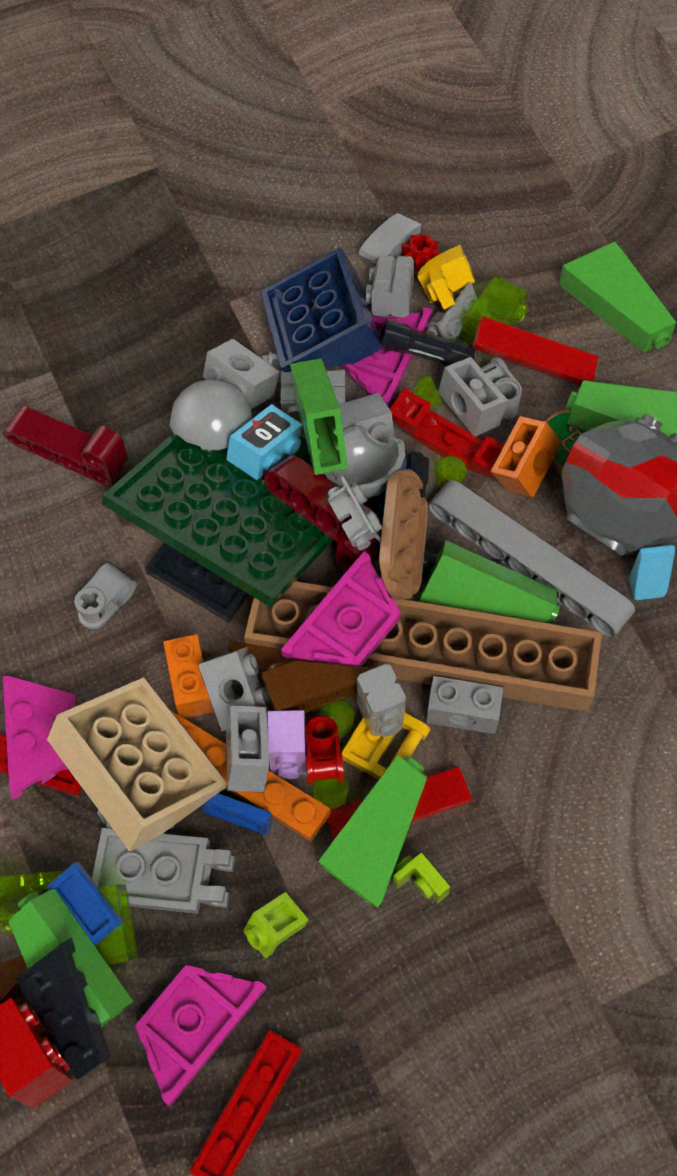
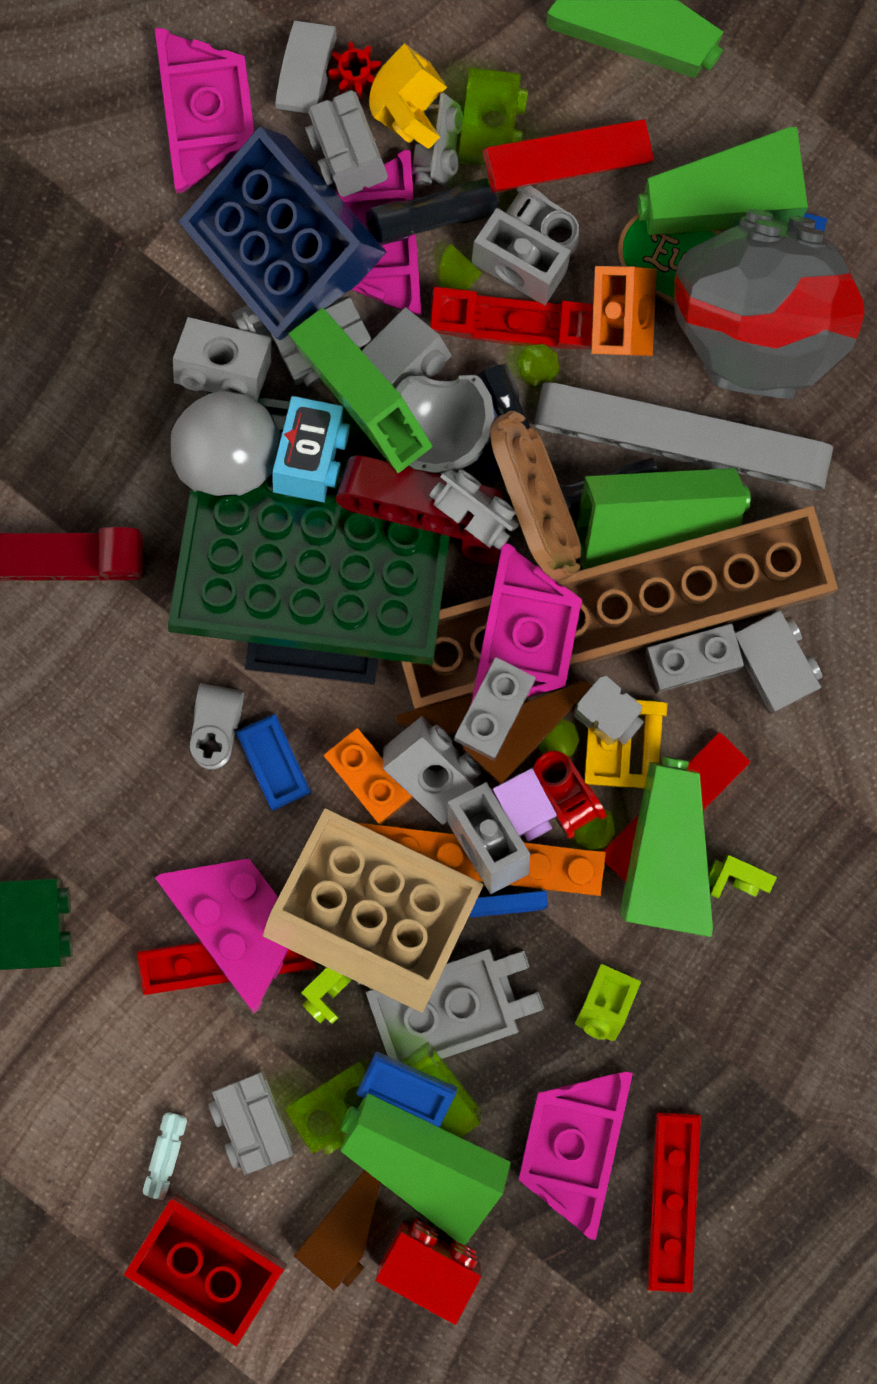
camera: 25 degrees left, 20 degrees up
(61, 1005) = (442, 1203): black wing -> none
(69, 807) = (327, 982): none -> lime bracket
(130, 641) = (273, 762): none -> blue tile
(297, 650) = (494, 708): none -> light grey brick
(312, 232) = (204, 106): none -> dark pink wing
(525, 736) = (777, 661): none -> light grey brick
(652, 572) = (834, 395): medium azure slope -> none

